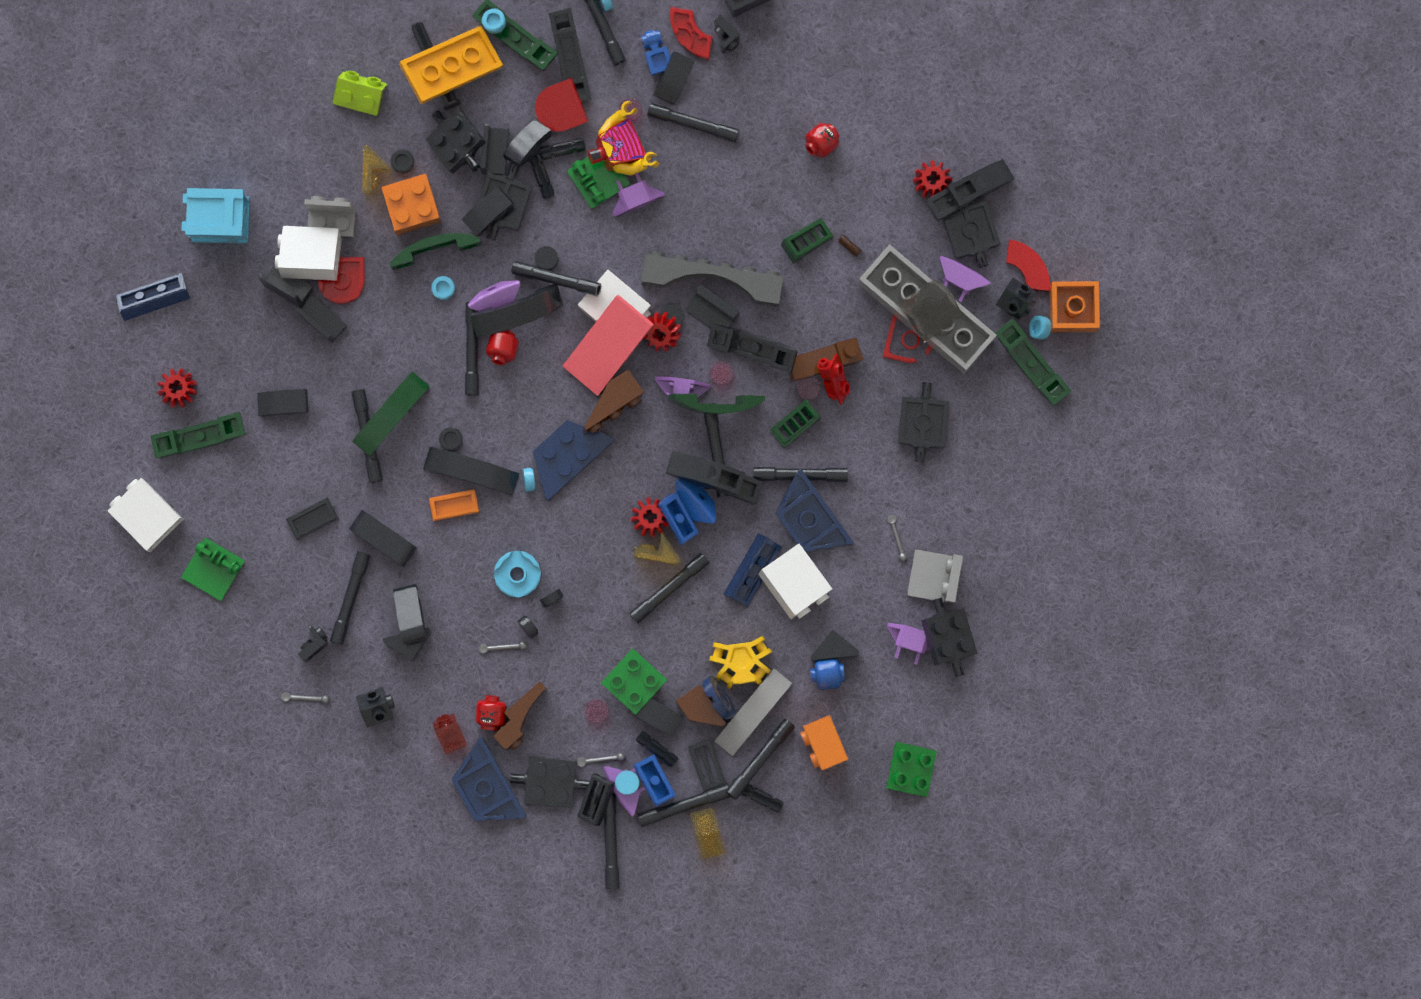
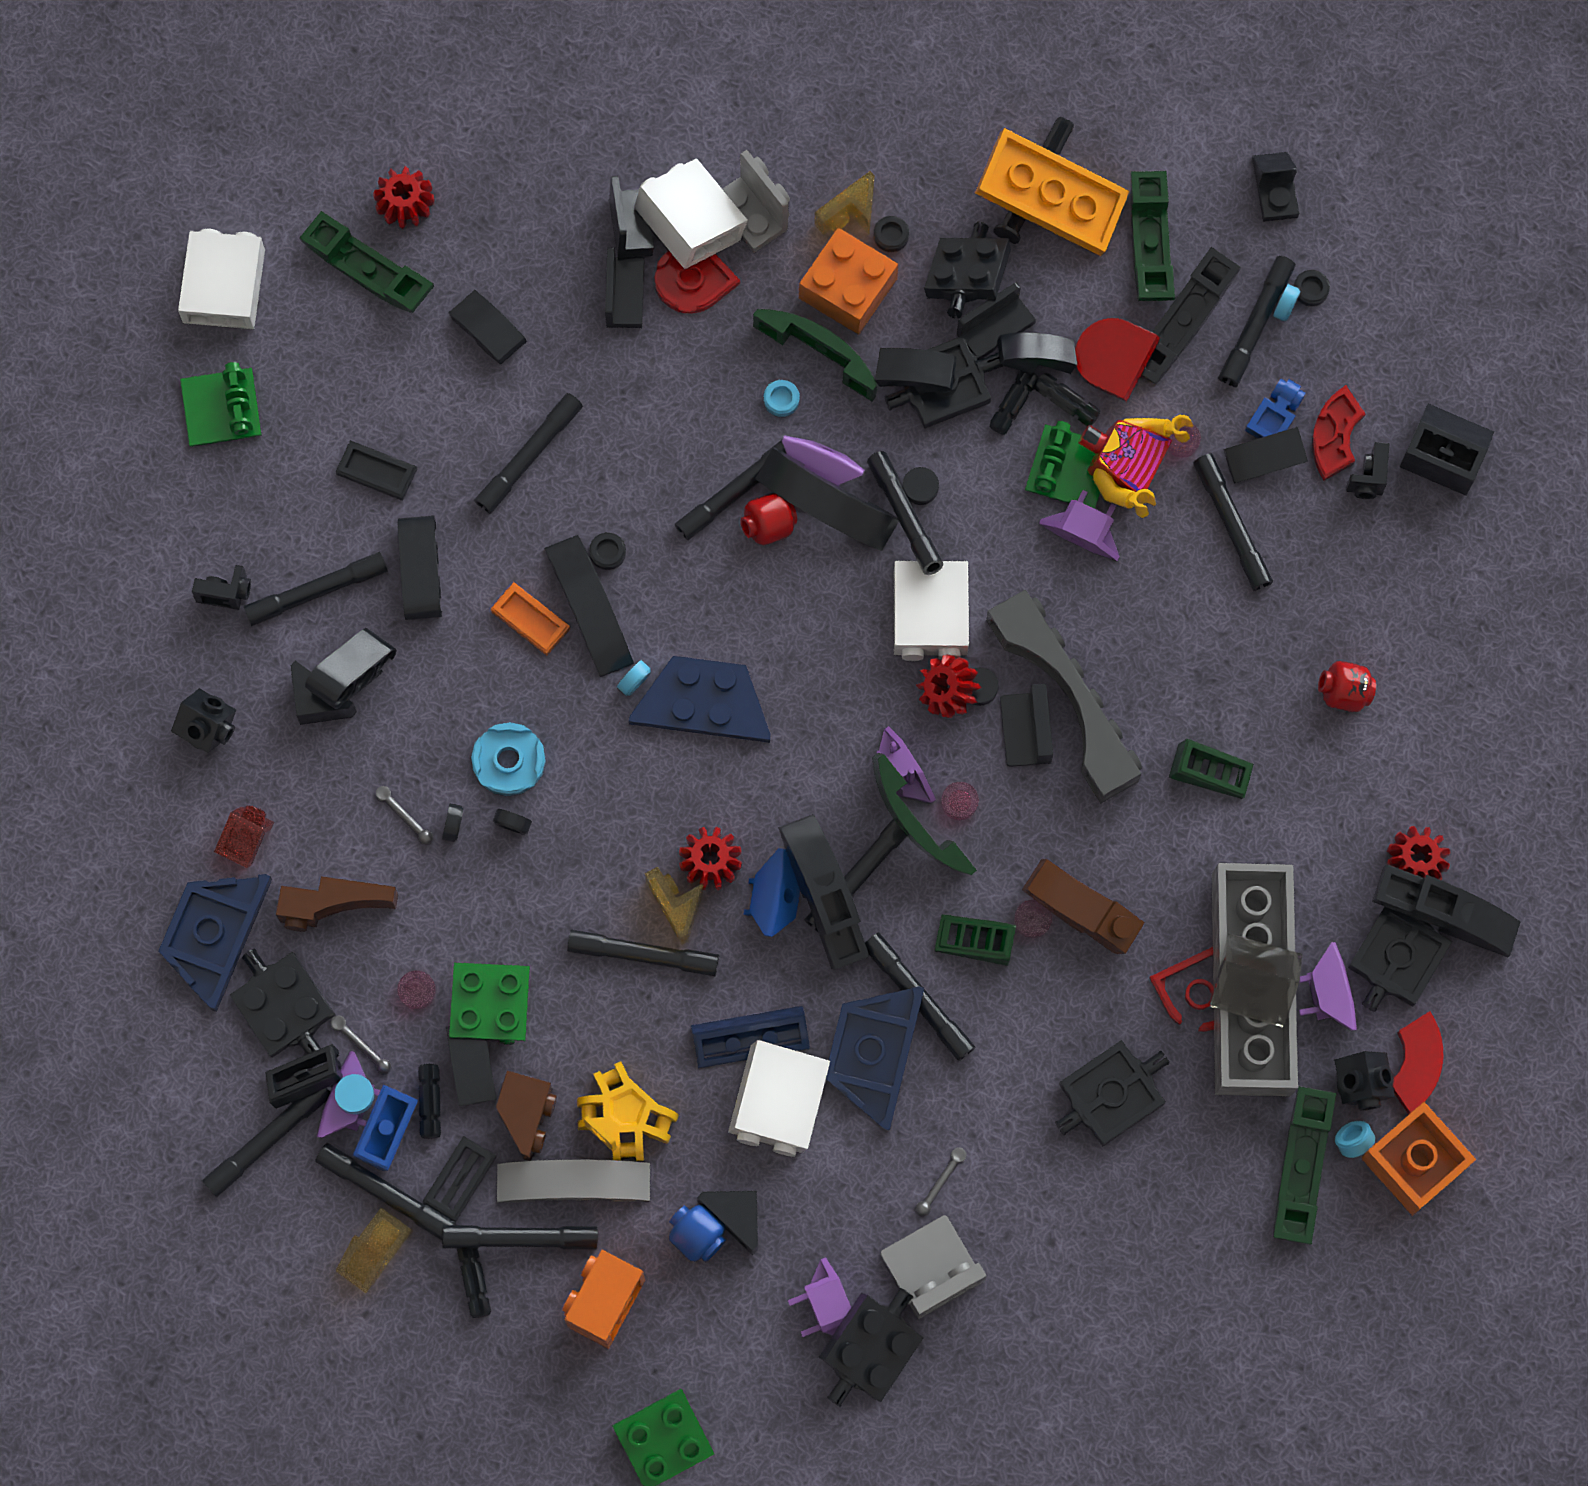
camera: 45 degrees right, 10 degrees down
(153, 300) = (487, 94): dark blue slope -> none
(216, 215) = (644, 77): medium azure container -> none
(286, 697) = (135, 612): flat silver hinge -> none
(359, 92) = (928, 121): lime bracket -> none
(390, 413) = (578, 454): dark green slope -> none
(490, 713) = (308, 861): red head -> none
(493, 21) = (1147, 198): medium azure tile -> none
(608, 345) = (876, 635): coral tile -> none
(618, 395) = (817, 697): reddish brown slope -> none
(678, 518) = (736, 890): blue slope -> none
(721, 700) = (554, 1125): dark blue tile -> none
(753, 347) = (1023, 808): black slope -> none
(835, 380) = (1066, 948): red hinge -> none
(849, 245) = (1250, 829): reddish brown piece -> none

